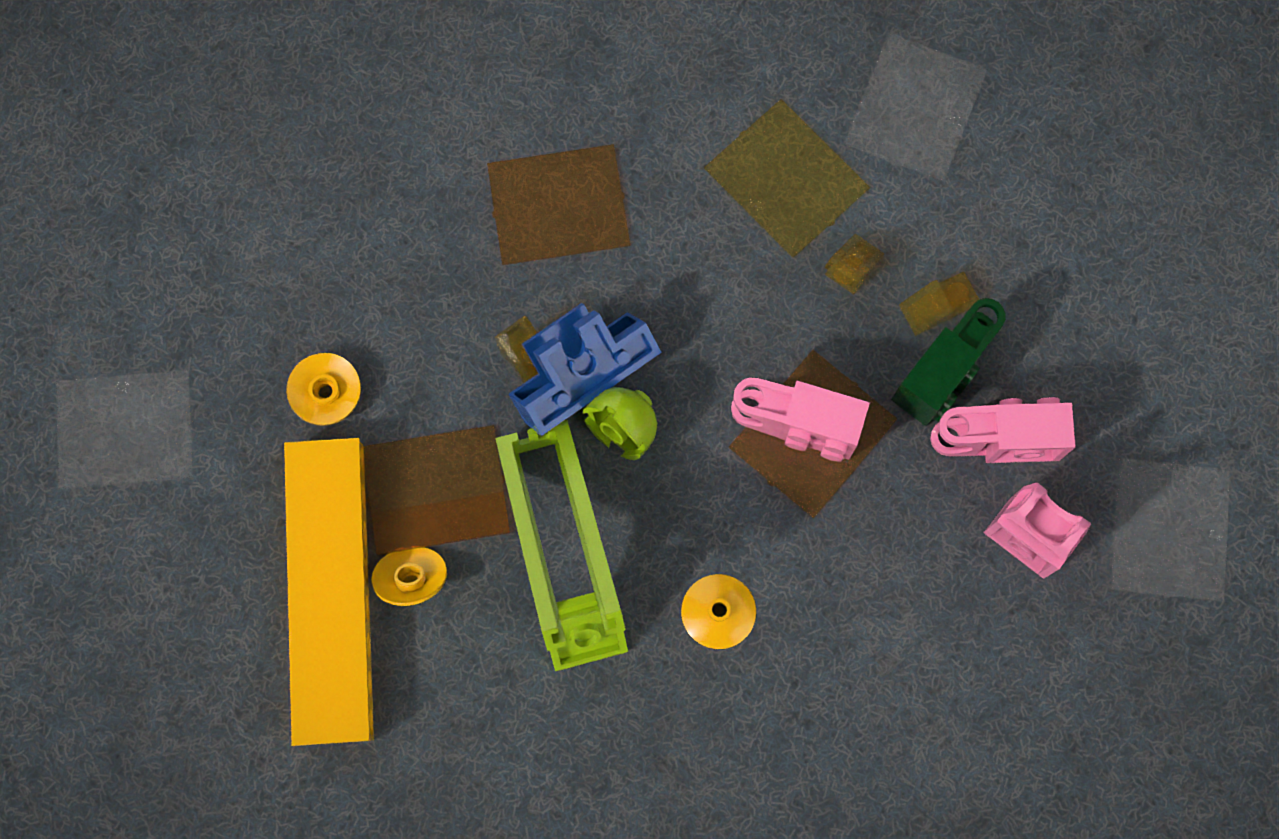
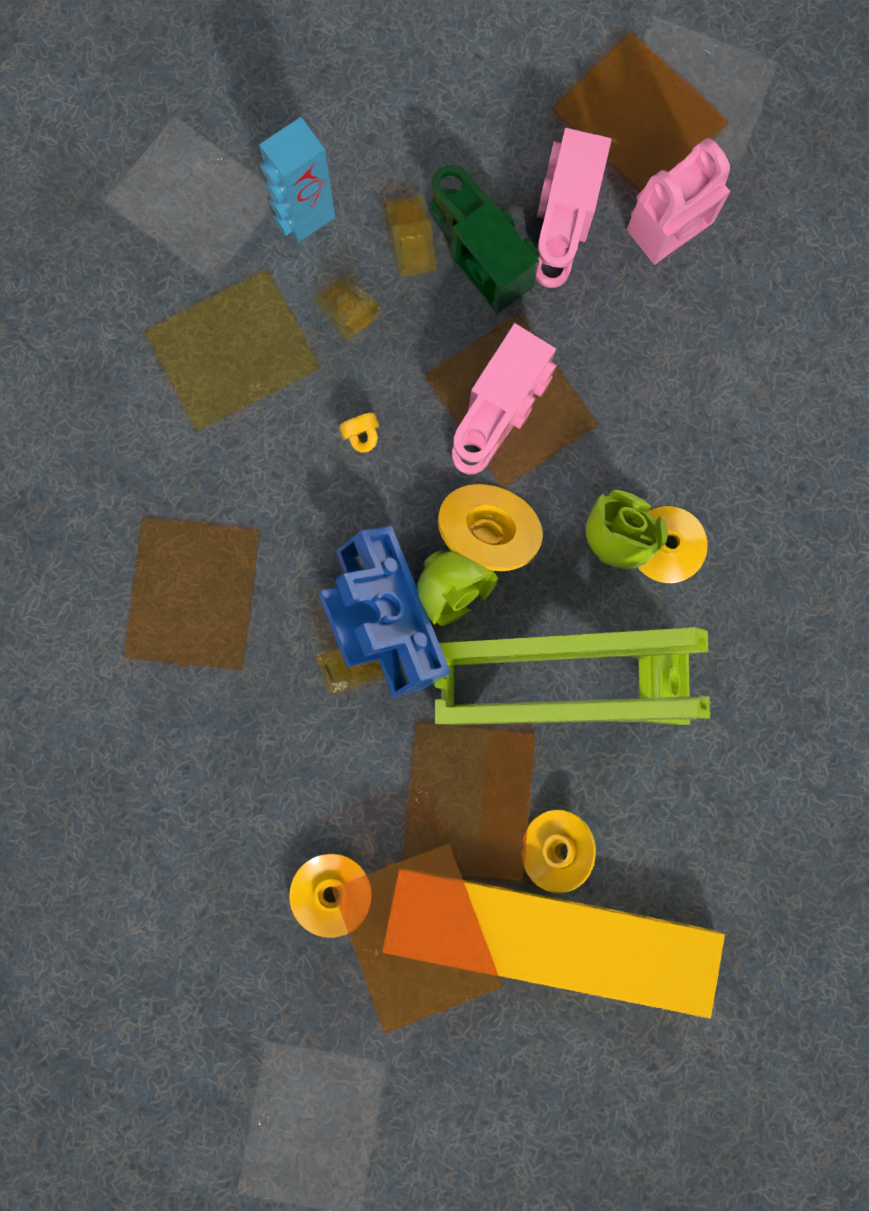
camera: 80 degrees left, 5 degrees up
(303, 468) = (417, 938): none -> clear orange piece
(685, 440) = (490, 527): none -> yellow hat
(716, 560) = (624, 531): none -> lime cylinder
(749, 306) = (356, 426): none -> yellow tile
(942, 180) = (297, 180): none -> dark azure brick
(1127, 481) = (643, 109): none -> clear orange piece

